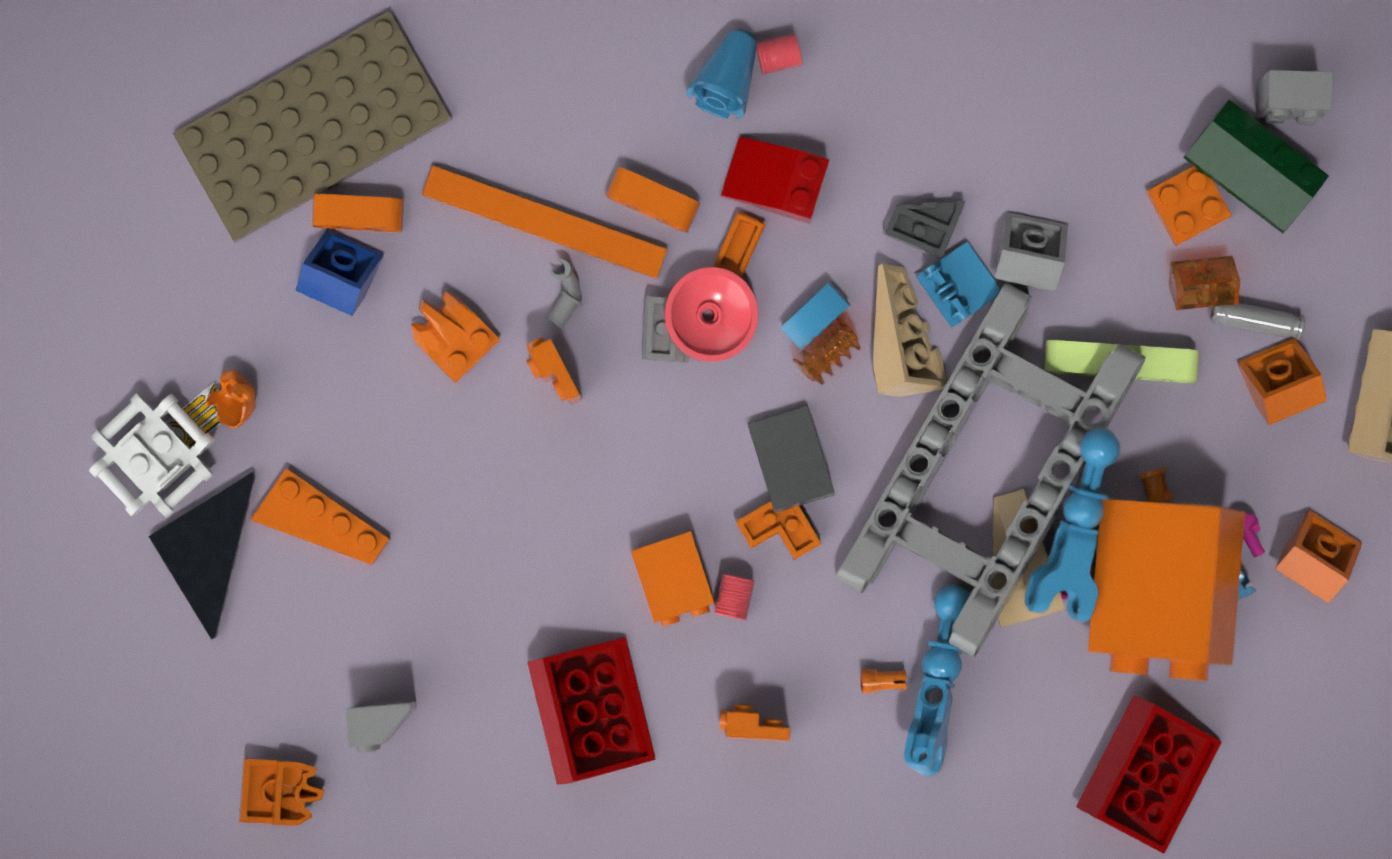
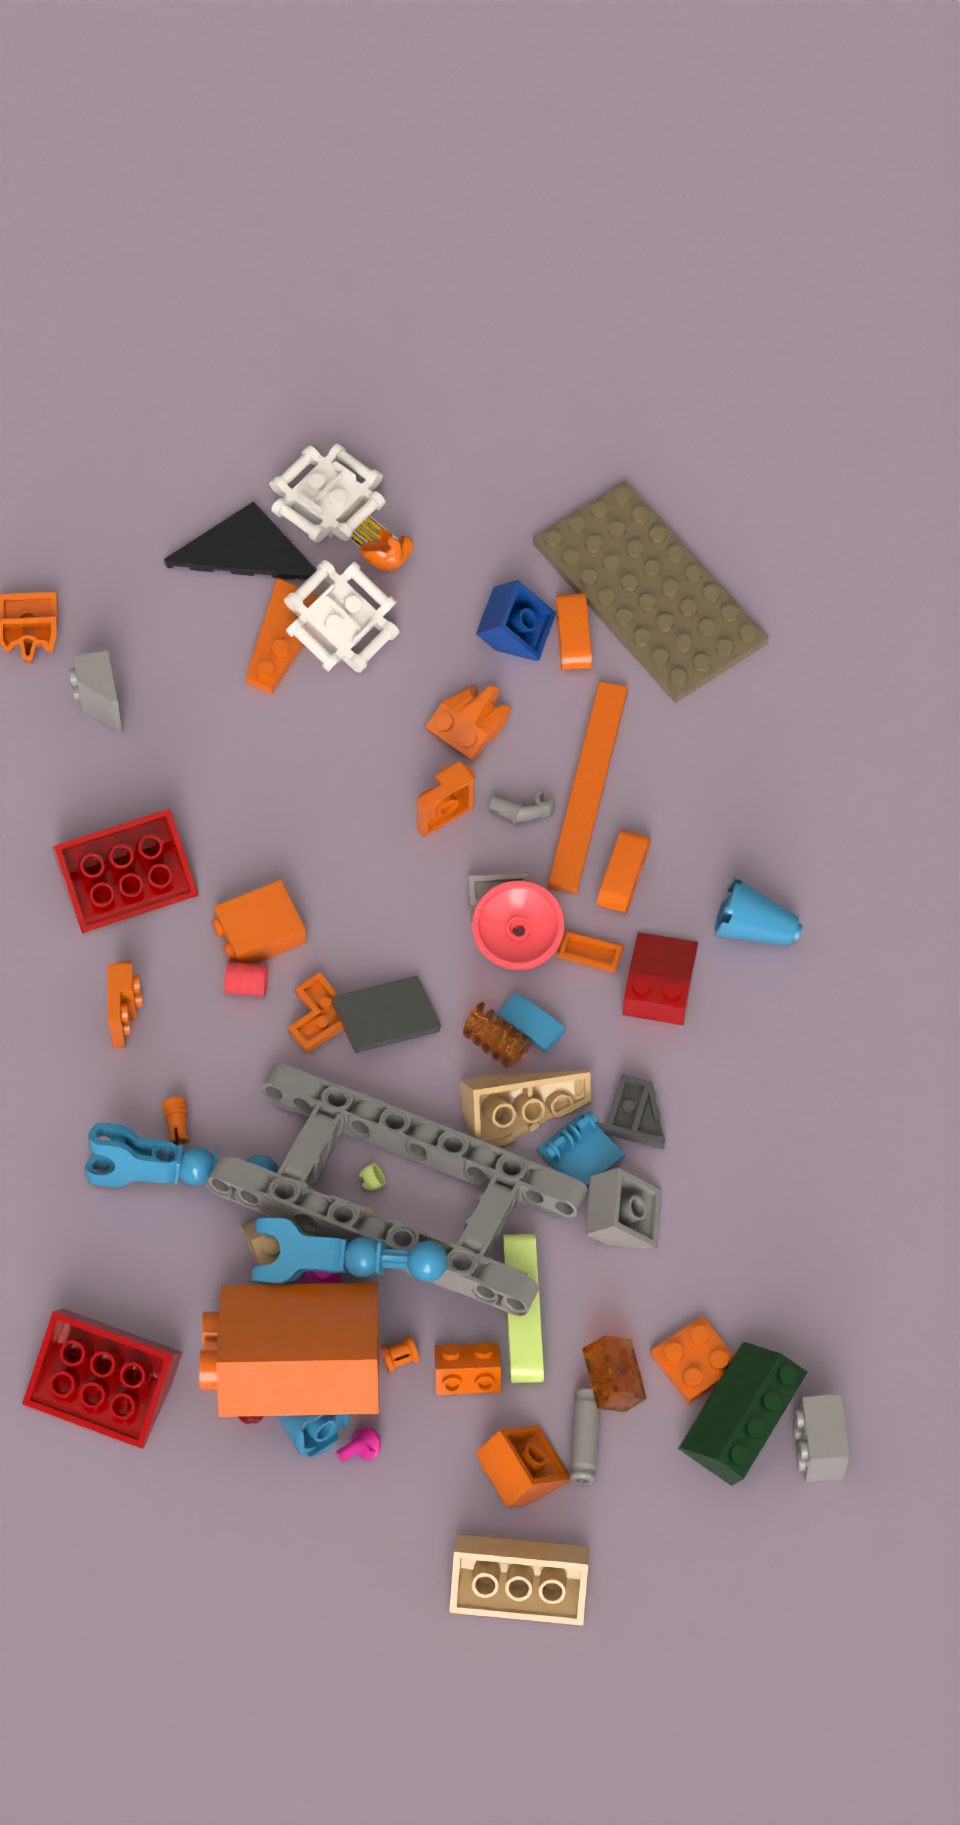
camera: 80 degrees right, 25 degrees down
(317, 456) = (340, 617): none -> white brick
(779, 53) = (784, 963): coral piece -> none
(965, 491) = (373, 1177): none -> yellowish green hinge
(1175, 422) = (467, 1368): none -> orange bracket
(1319, 556) = (344, 1519): orange slope -> none

